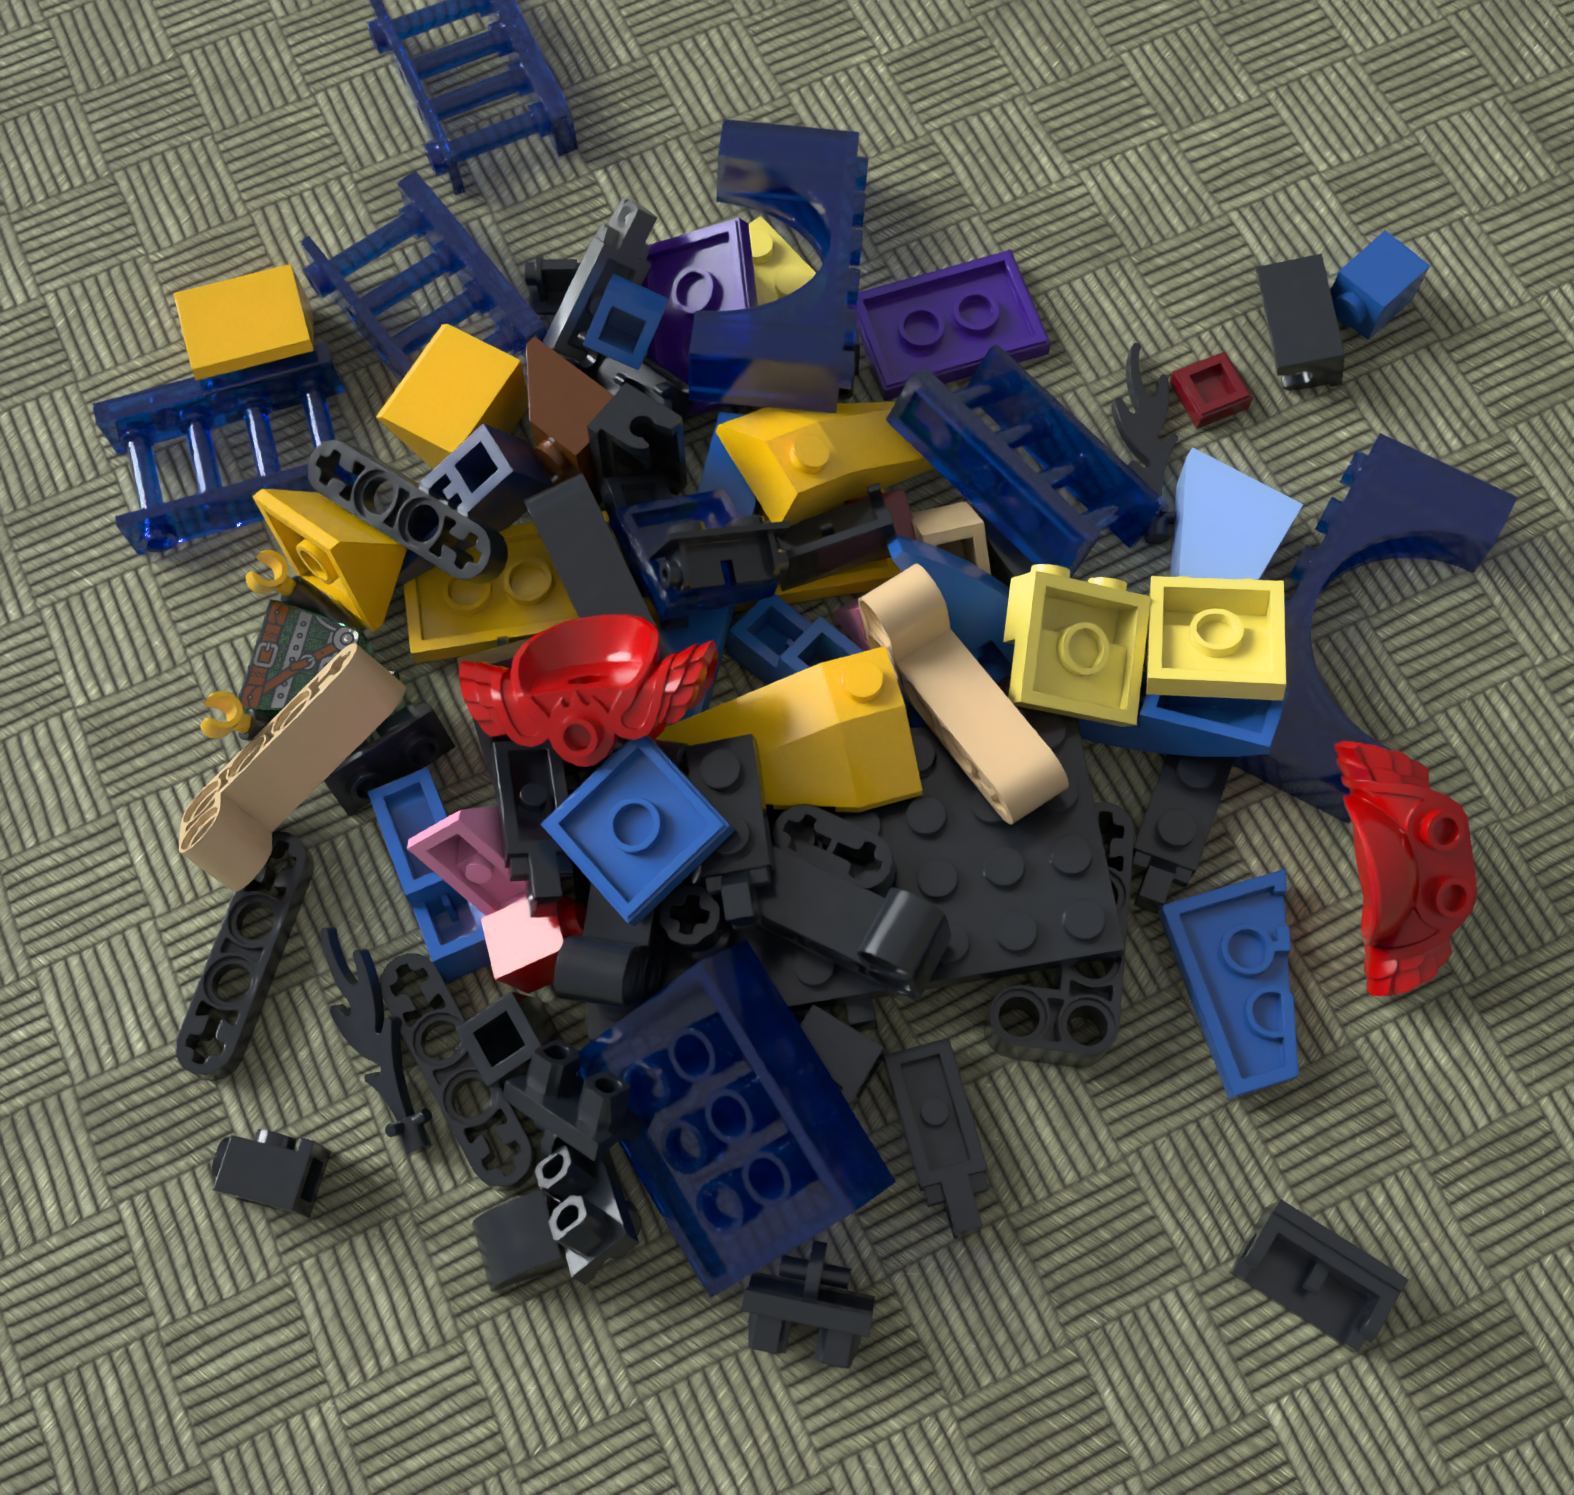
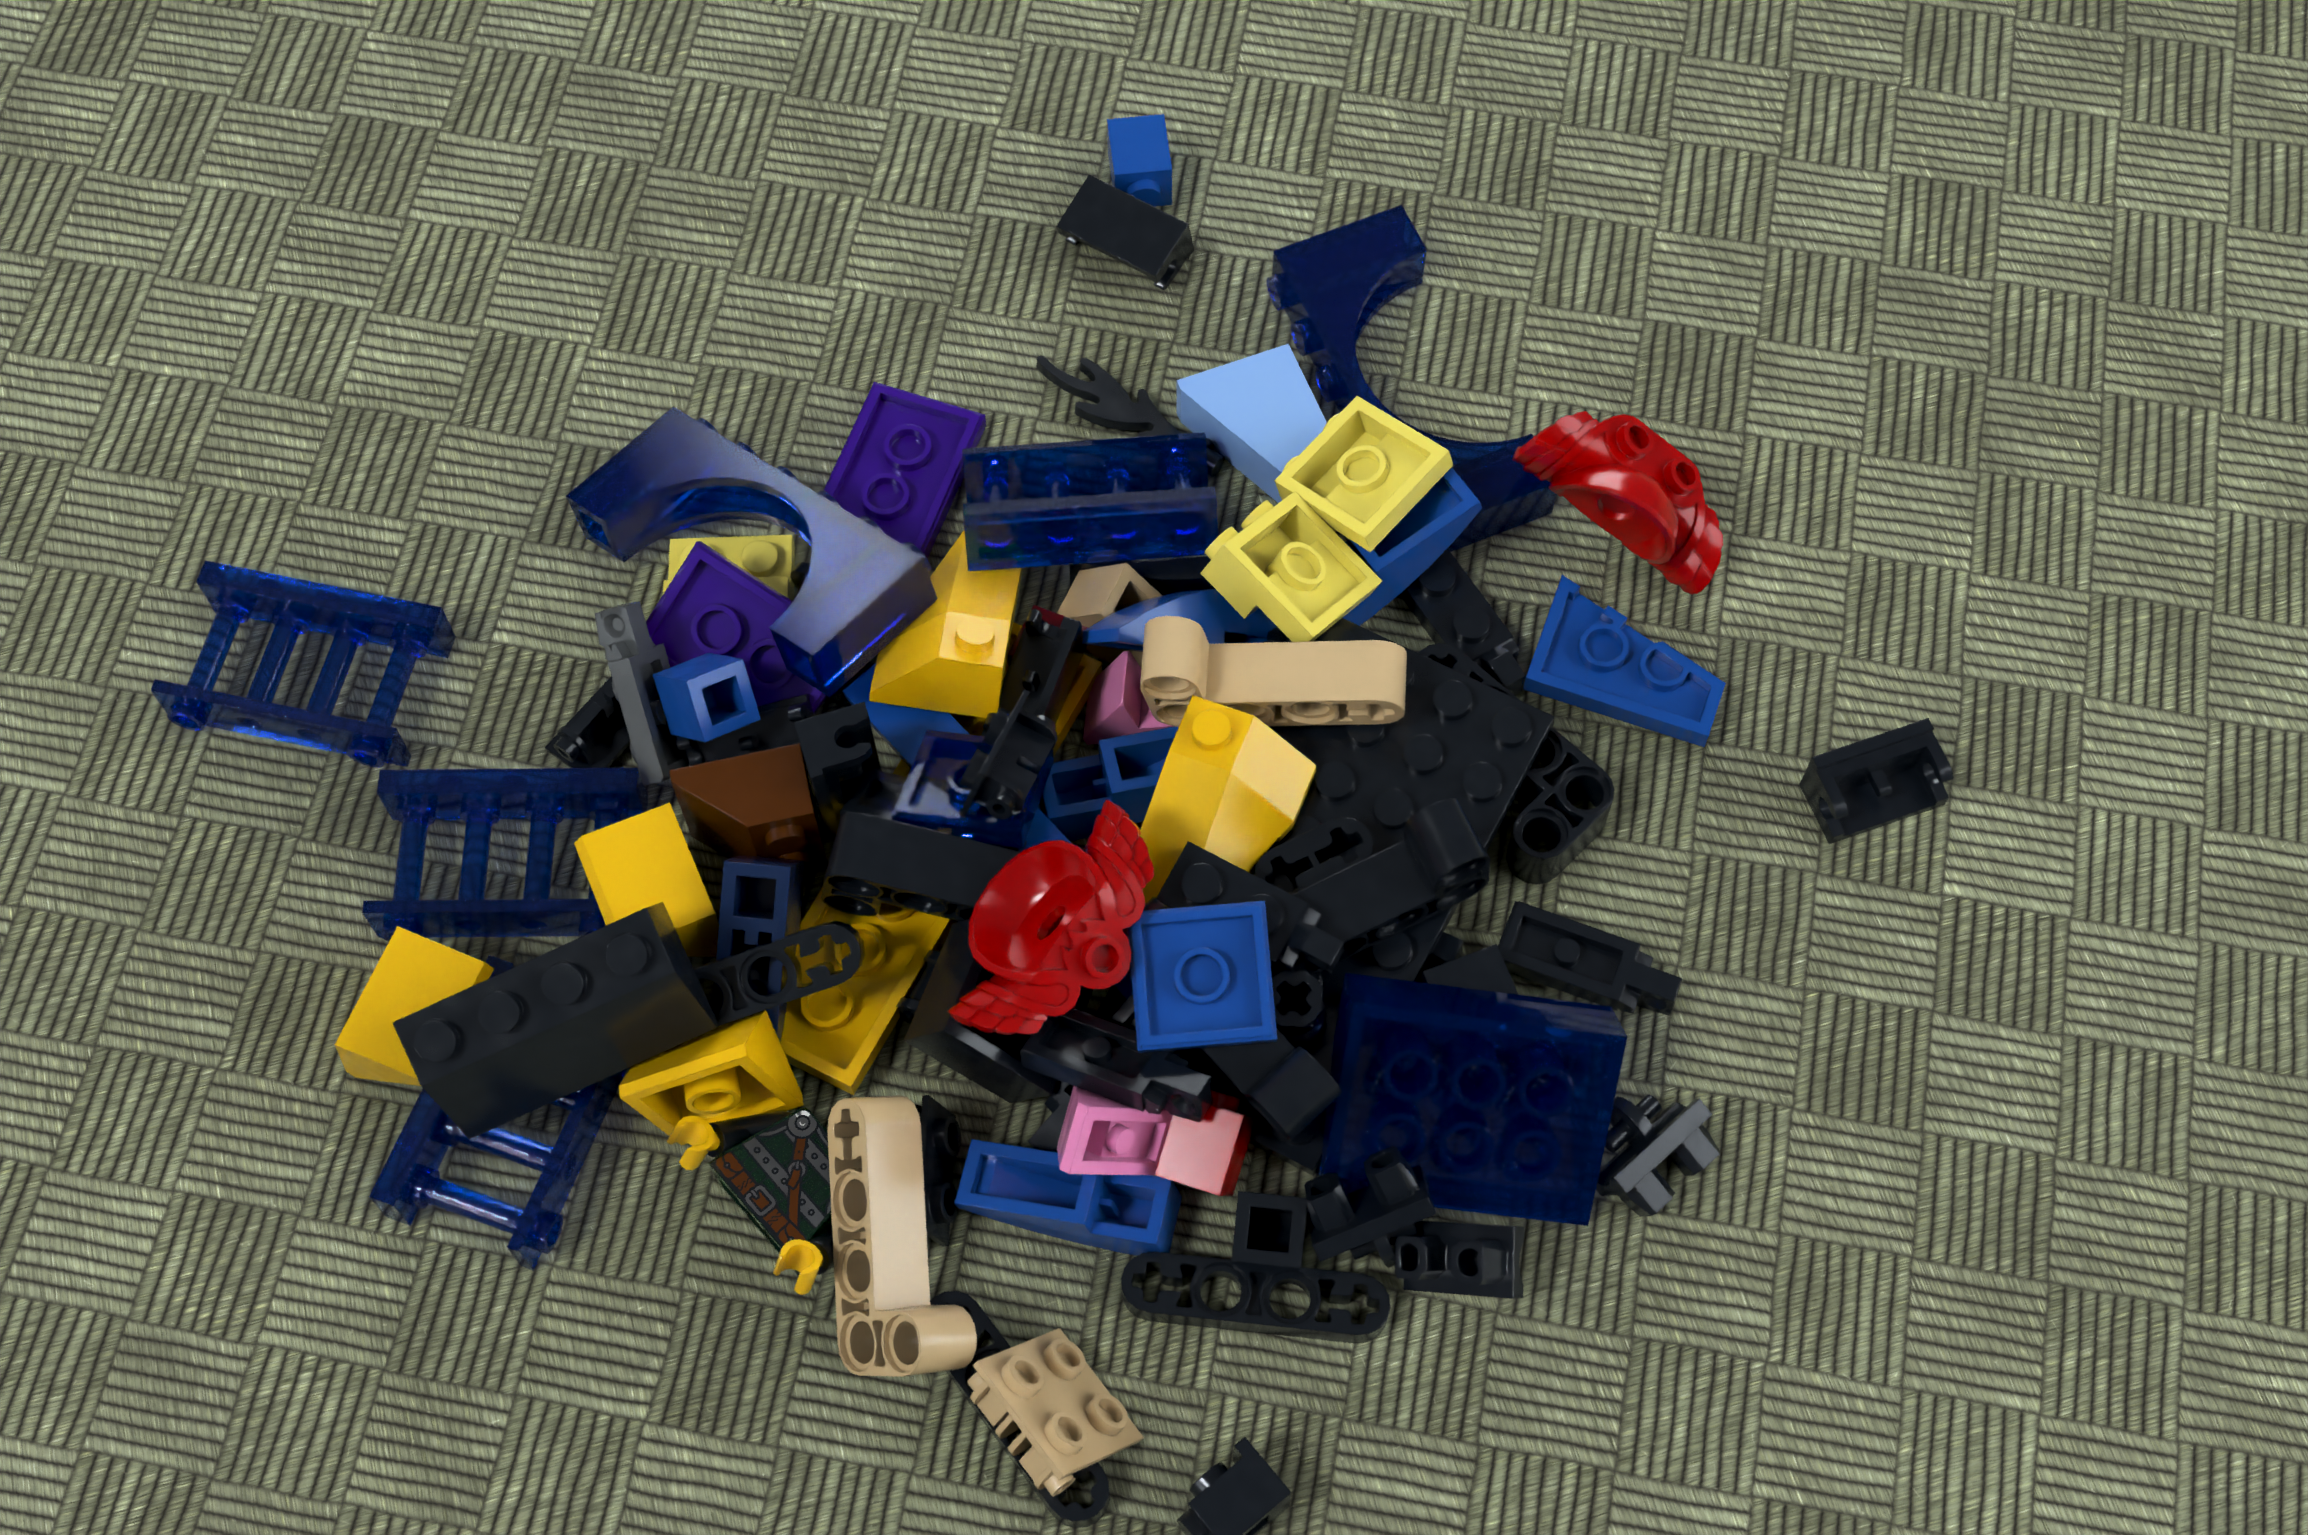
camera: 55 degrees left, 5 degrees down
(254, 982) = (1056, 1405): none -> tan hinge
(281, 412) = (557, 1022): none -> black slope
(375, 1040) = (1169, 1350): black piece -> none
(518, 1241) = (1440, 1338): black brick -> none
(1210, 390) = (1122, 337): dark red tile -> none

